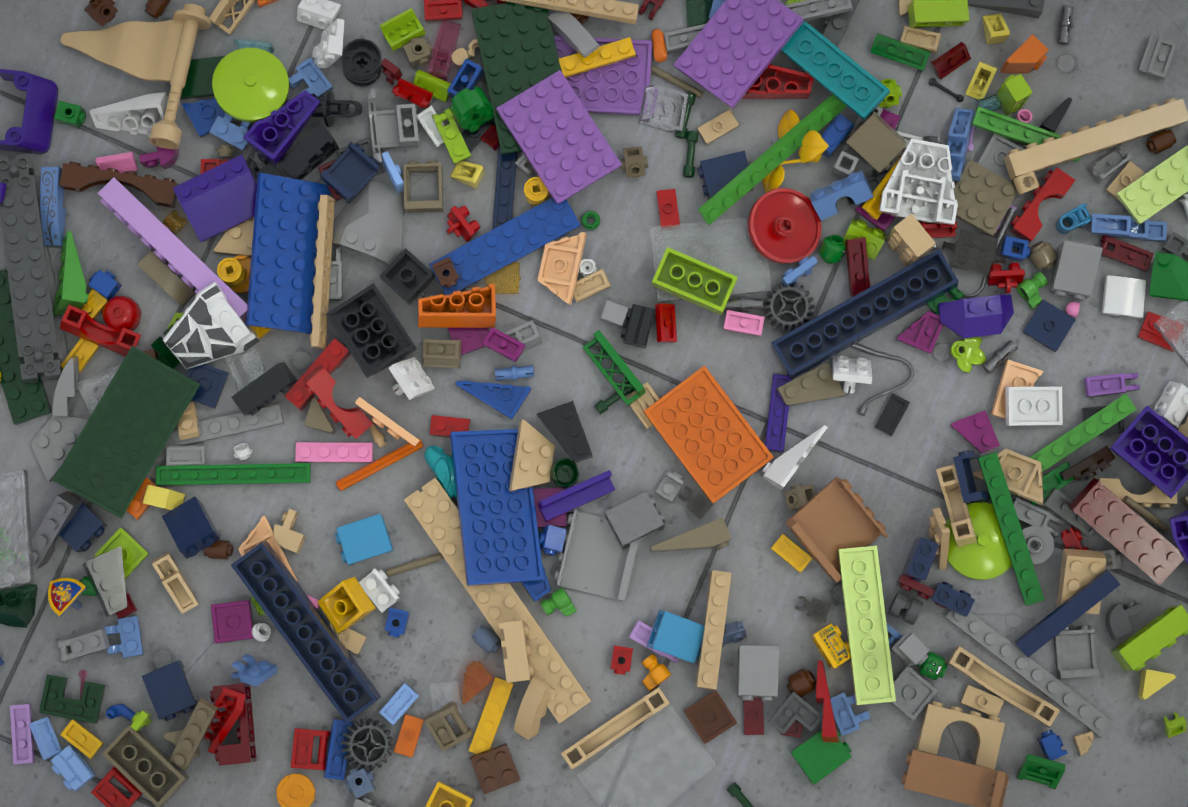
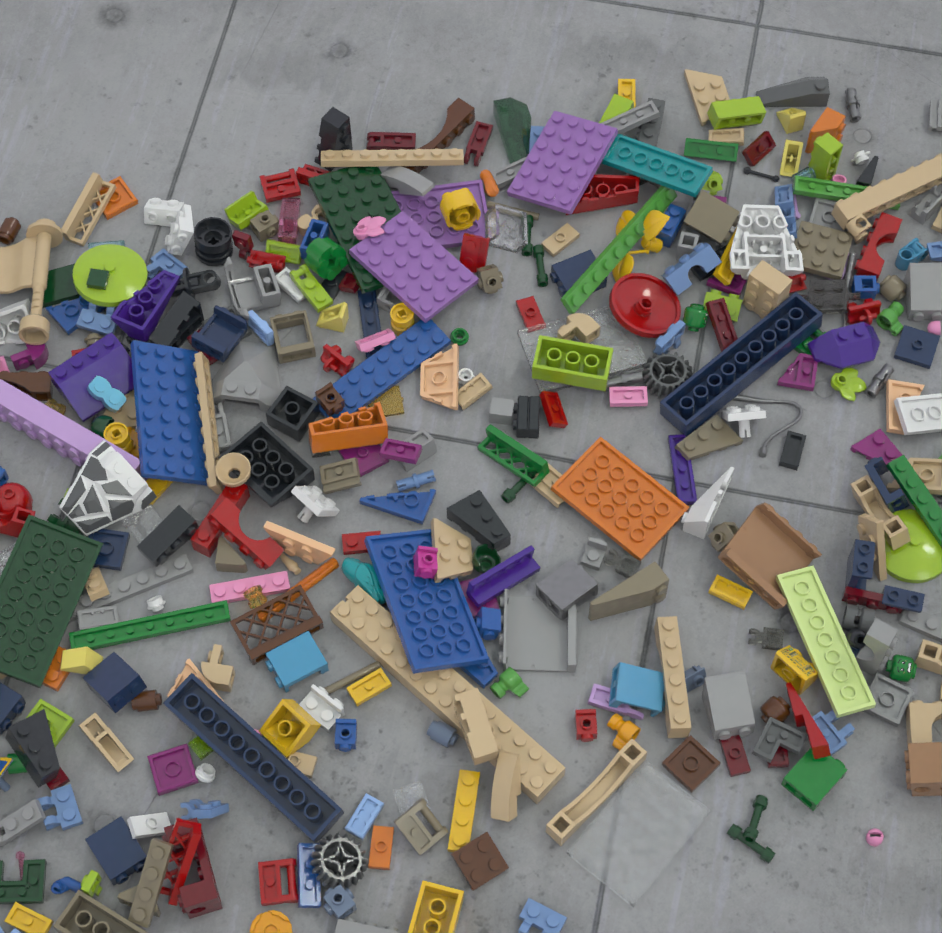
camera: 15 degrees left, 20 degrees down
(166, 278) = (51, 459): dark tan slope -> none
(202, 673) = (148, 825): none -> white plate
(216, 255) = (100, 423): none -> dark green hair
(230, 226) = (102, 391): none -> medium azure brick
(236, 93) = (98, 279): none -> dark green tile
(329, 328) = (232, 462): none -> tan piece
(336, 466) = (255, 596): none -> clear yellow wheel
(358, 513) = (259, 652): none -> reddish brown fence
(427, 578) = (369, 687): none -> yellow plate
(475, 680) = (440, 774): clear orange slope -> none
(498, 476) = (425, 562): none -> dark pink brick
(504, 210) = (381, 338): none -> bright pink plate
(521, 84) = (369, 227): none -> bright pink plate
(603, 56) = (431, 201): yellow plate -> none
(619, 78) = (459, 209): none -> yellow brick
(624, 130) = (474, 251): none -> red plate
(713, 239) = (581, 326): none -> tan brick
(747, 796) = (751, 832): none -> dark green bar
(896, 629) = (855, 638): none -> black plant
(1055, 93) = (861, 157): none -> white plate

